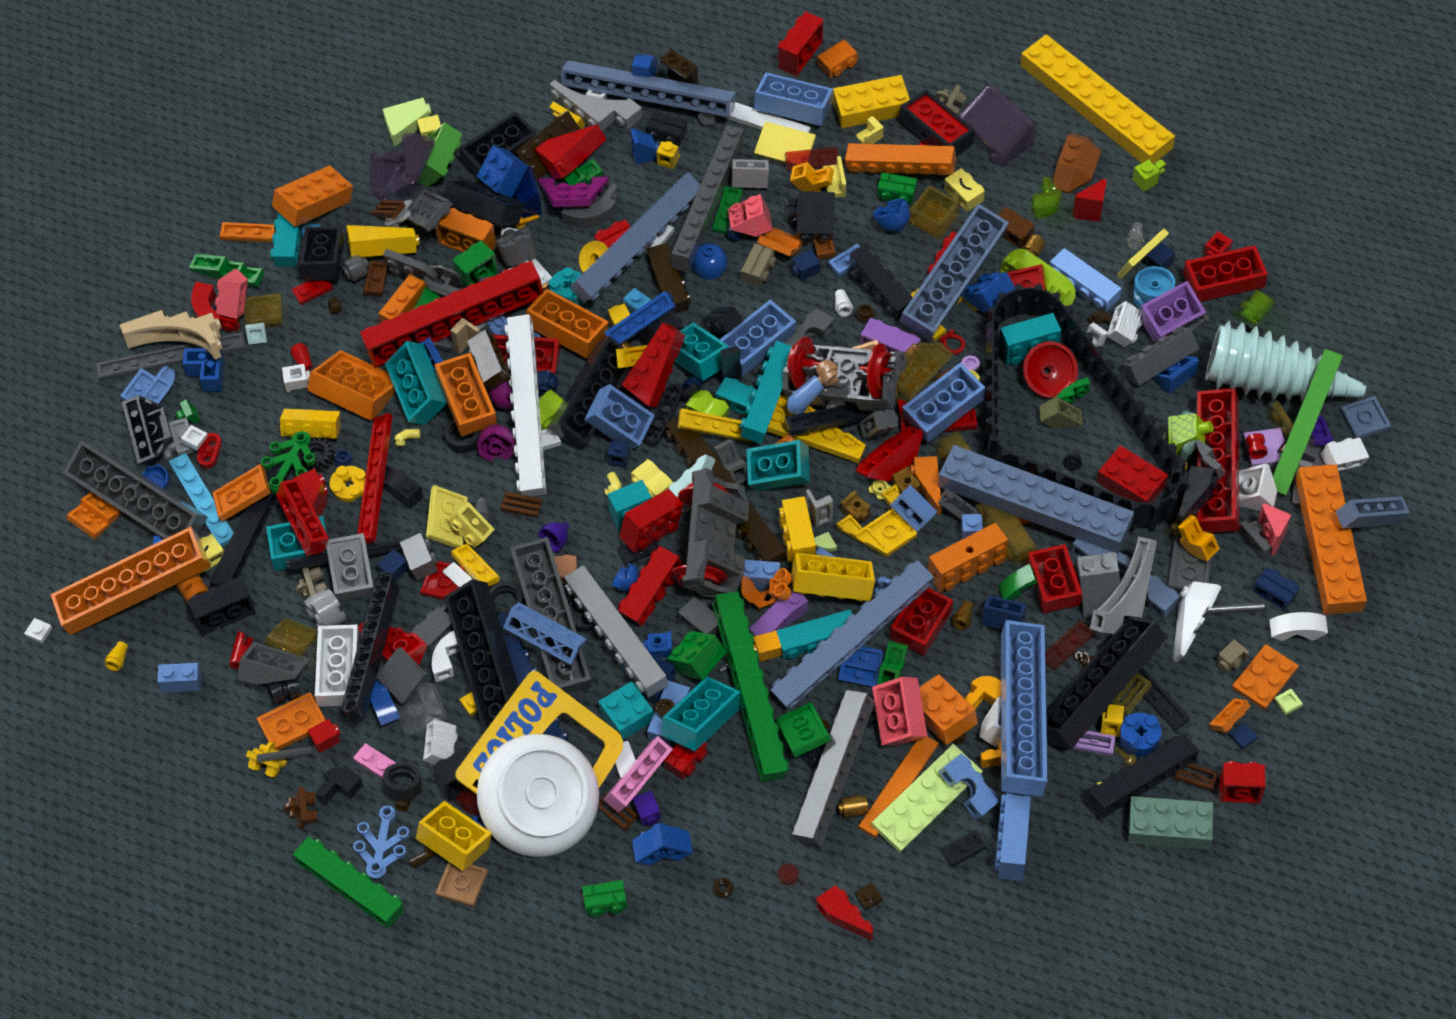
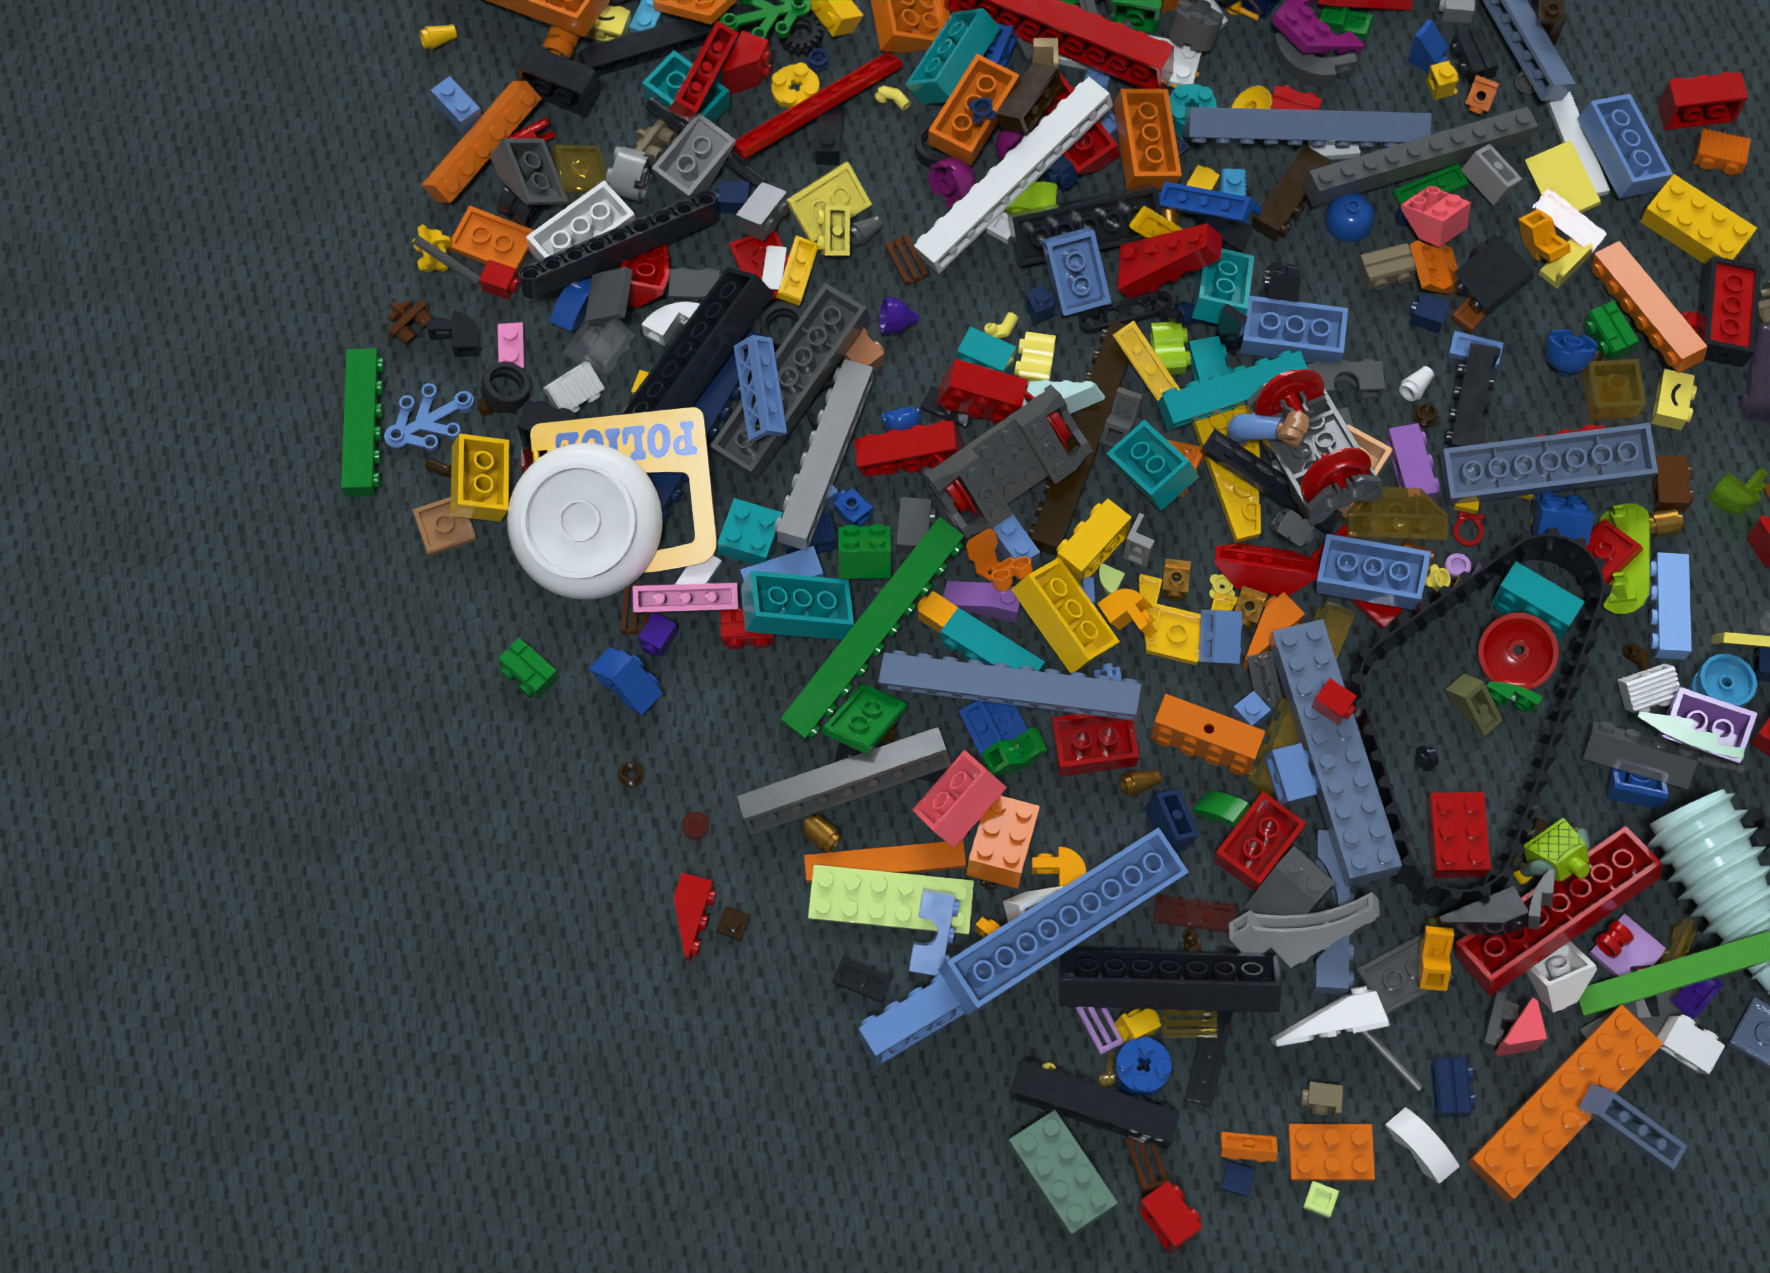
camera: 50 degrees right, 10 degrees up
(219, 680) = (480, 141): none -> orange brick
(475, 381) = (982, 103): none -> dark blue plate
(663, 707) = (777, 564): dark brown tile -> none
(689, 141) = (1488, 87): none -> orange brick
(853, 540) = (1125, 606): none -> light orange brick
(872, 133) = (1658, 255): light yellow panel -> none
(1012, 471) = (1335, 702): none -> red brick
(1030, 530) = (1291, 774): none -> medium blue brick
(1099, 334) = (1608, 668): white plate -> none
(1168, 322) = (1681, 730): none -> slope

